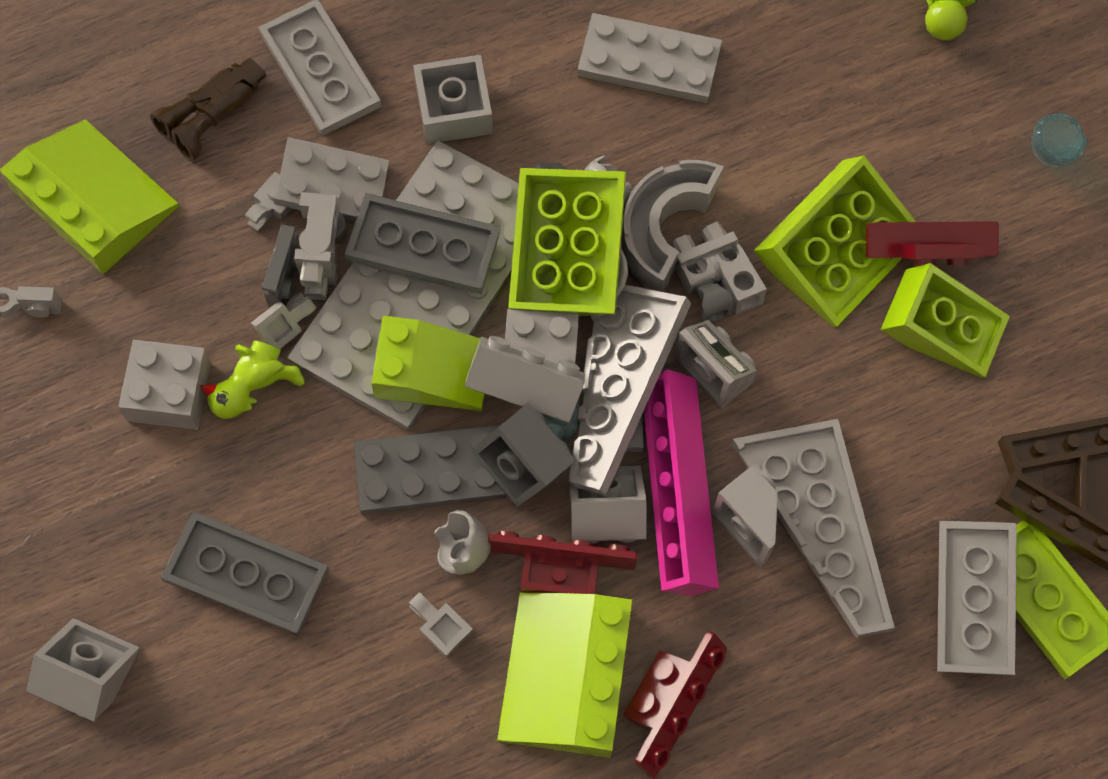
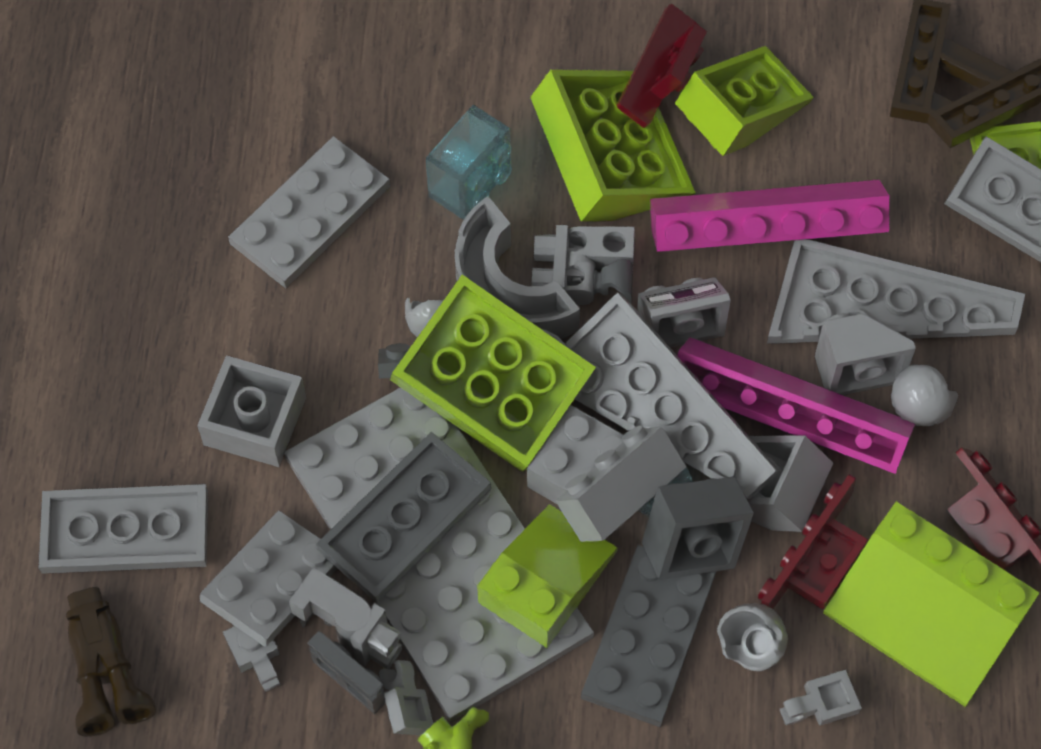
camera: 60 degrees left, 5 degrees down
(740, 580) = (922, 396): none -> light grey hair
(751, 141) = (469, 162): none -> clear light blue brick
(843, 389) = (769, 215): none -> dark pink brick

